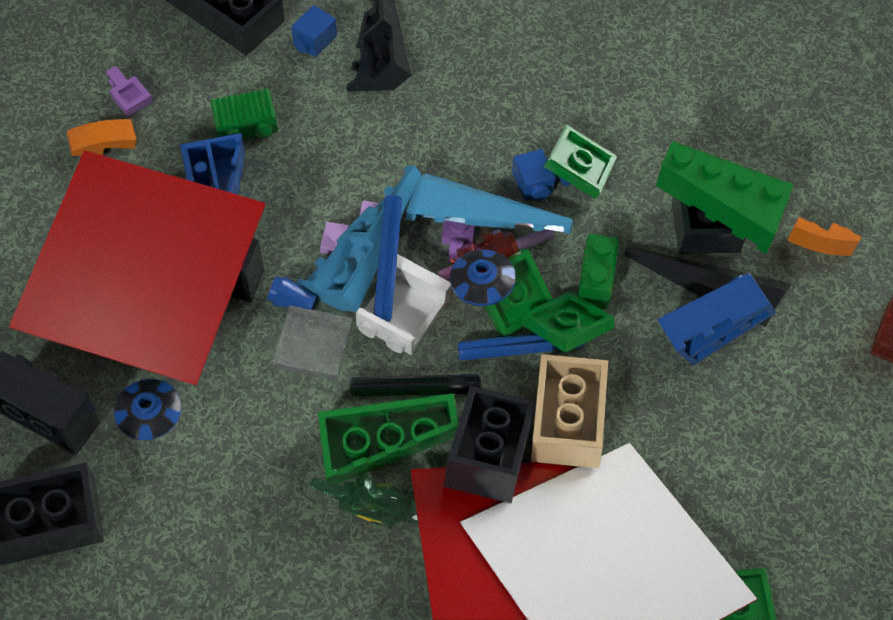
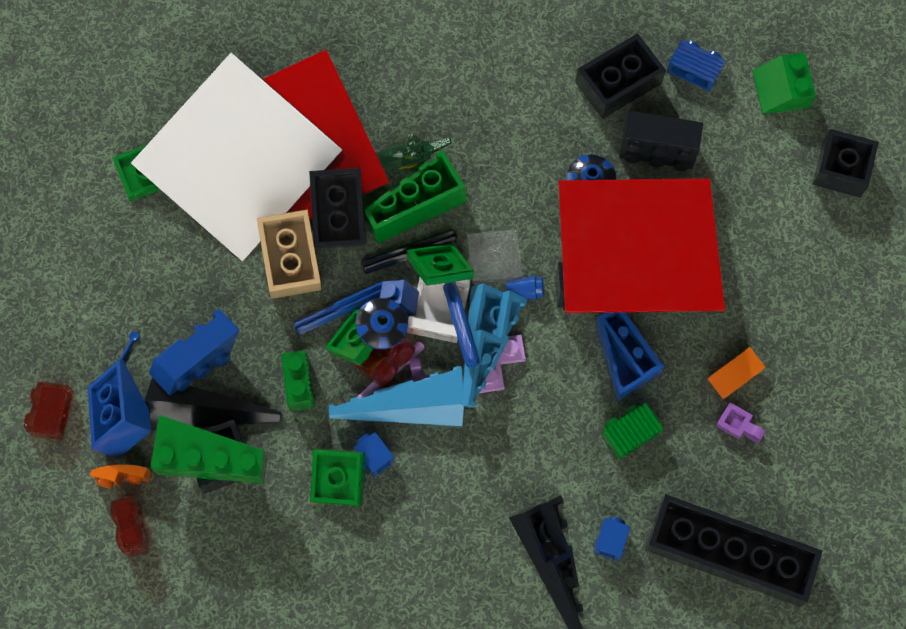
camera: 165 degrees right, 10 degrees up
(385, 340) = (440, 264): none -> green tile
(449, 320) = (402, 293): none -> blue brick
(568, 321) = (309, 325): green plate -> none
(786, 390) = (133, 336): none -> blue hinge
(821, 182) = (129, 521): none -> clear red brick
(821, 294) = (116, 412): none -> blue slope

